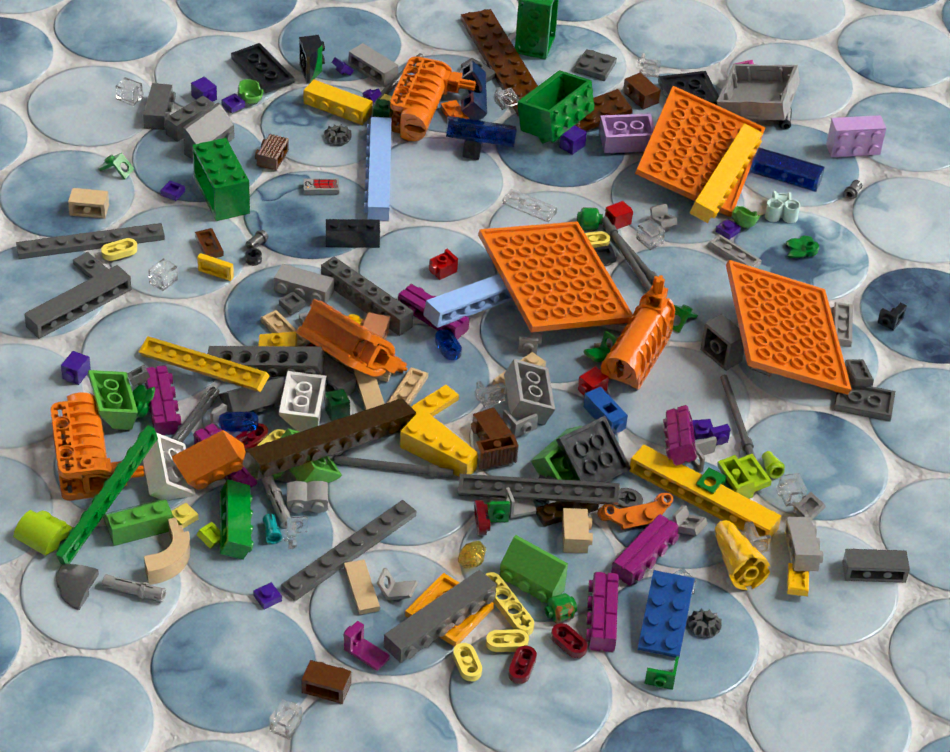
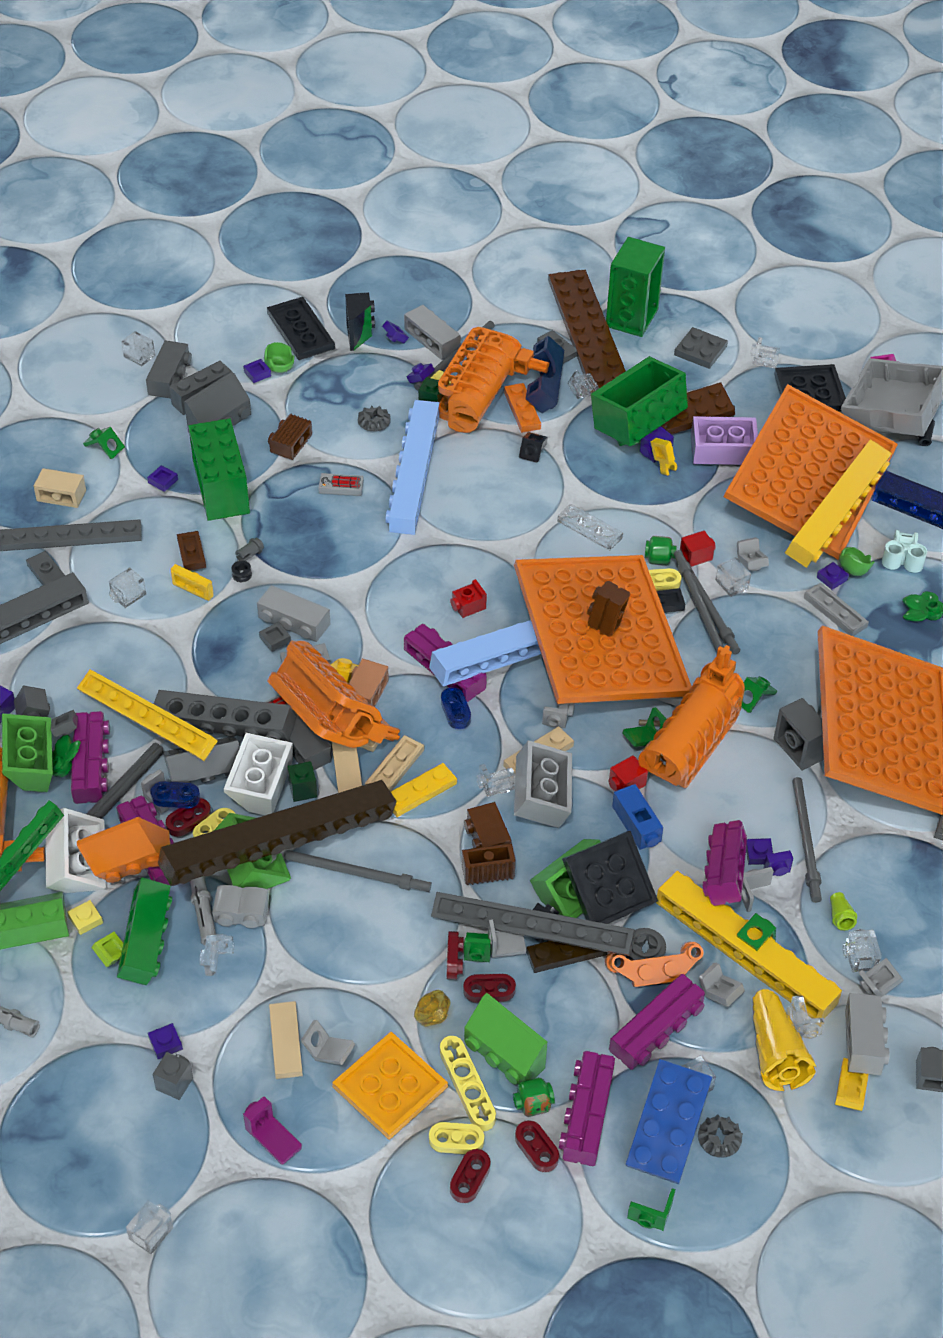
camera: 10 degrees right, 5 degrees up
(105, 362) = (32, 702): none -> dark grey brick
(119, 249) = (83, 550): light yellow plate -> none
(172, 561) = (58, 979): tan arch -> none
(205, 88) = (225, 351): dark purple brick -> none
(272, 532) = (188, 951): teal pin -> none
(277, 324) = (256, 671): tan tile -> none
(279, 339) = (247, 688): yellow plate -> none
(280, 616) = (173, 1075): none -> dark grey brick
(326, 681) = (212, 1176): reddish brown brick -> none
(337, 102) = (380, 377): yellow brick -> none
(348, 550) = (278, 985): dark grey plate -> none
(353, 233) = (365, 549): black brick -> none
(368, 295) = (368, 634): dark grey brick -> none
(437, 444) = (416, 847): yellow wedge -> none
(440, 616) = (372, 1098): dark grey brick -> none
(469, 663) = (399, 1166): light yellow plate -> none
(480, 131) = (544, 427): clear blue brick -> none
(503, 537) = (489, 984): none -> dark red plate
(521, 426) = (528, 830): light grey bracket -> none
(560, 259) = (607, 608): none -> reddish brown brick
(576, 530) = (571, 985): tan brick -> none
(581, 145) = (664, 454): none -> yellow plate
(641, 90) = (751, 385): reddish brown brick -> none
(744, 474) = (802, 924): lime brick -> none

